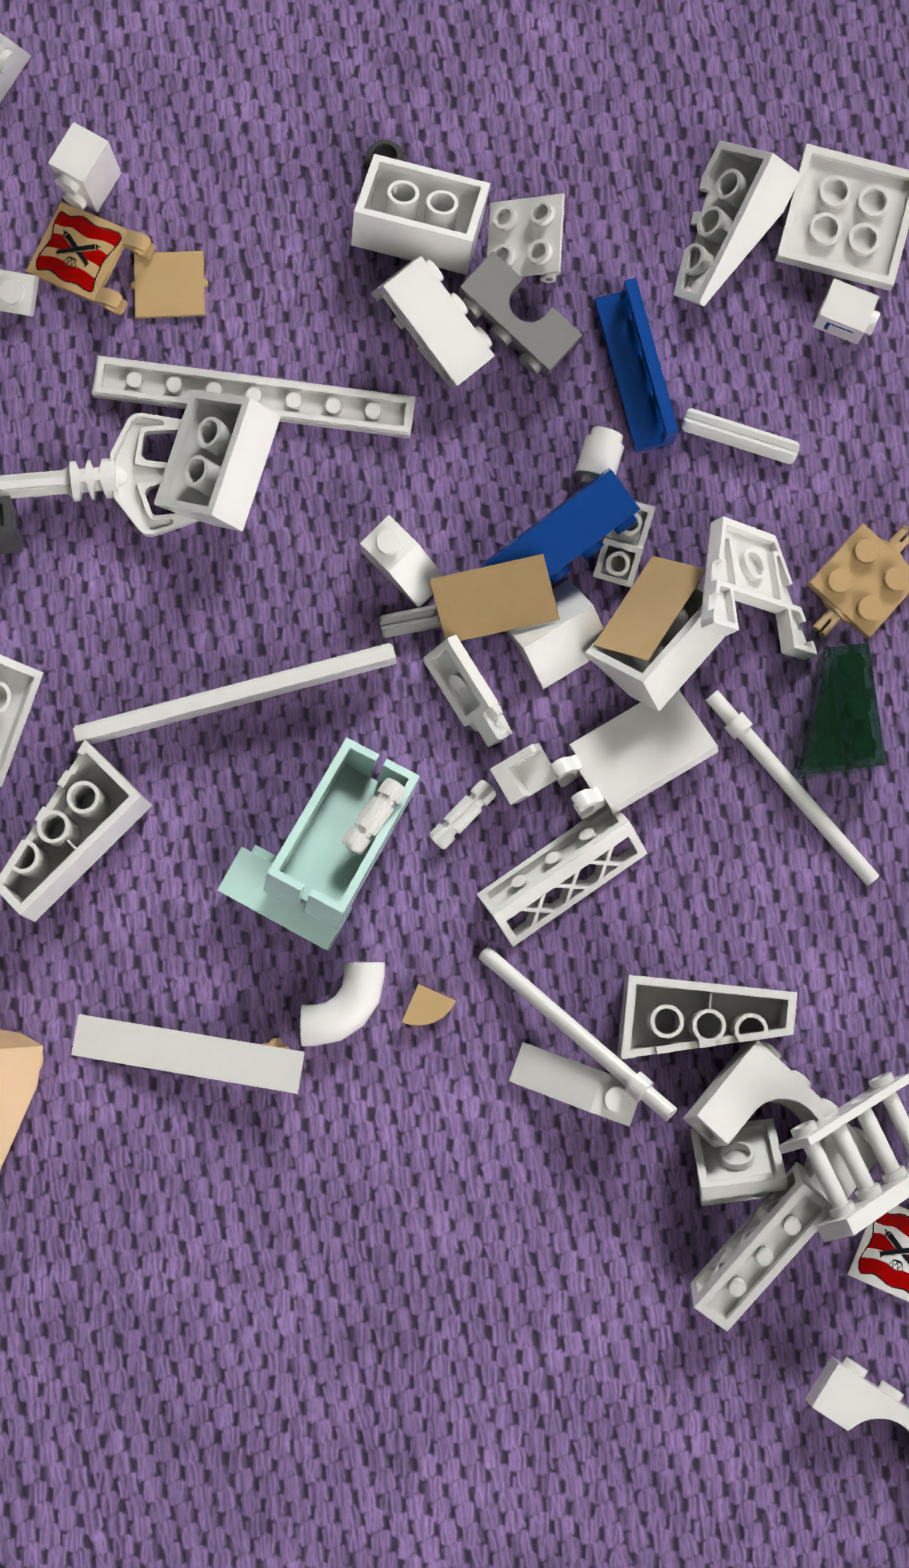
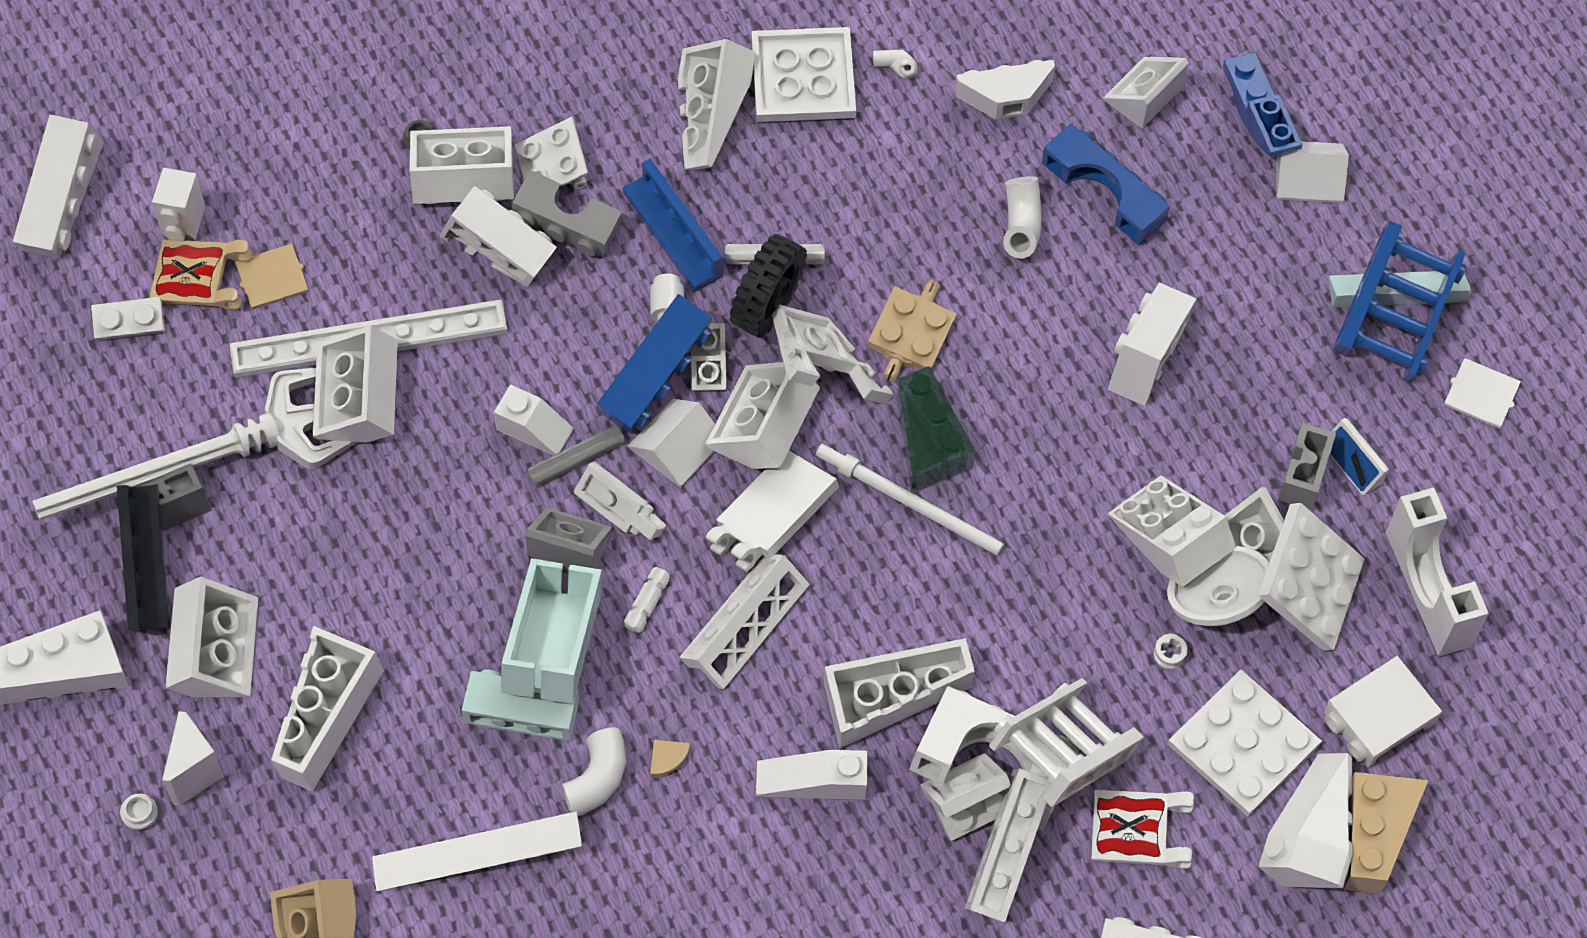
camera: 20 degrees left, 20 degrees down
(235, 694) = (429, 560): white tile -> none
(373, 816) = (574, 604): white axle -> none
(399, 714) = (567, 539): none -> light grey slope
(495, 598) = (617, 422): tan sticker -> none
(524, 773) = (687, 549): white panel -> none
(636, 1084) = (860, 746): white bar -> none
(650, 607) = (745, 394): tan sticker -> none
(718, 485) = (767, 284): none -> black wheel
(847, 312) = (826, 140): white brick -> none

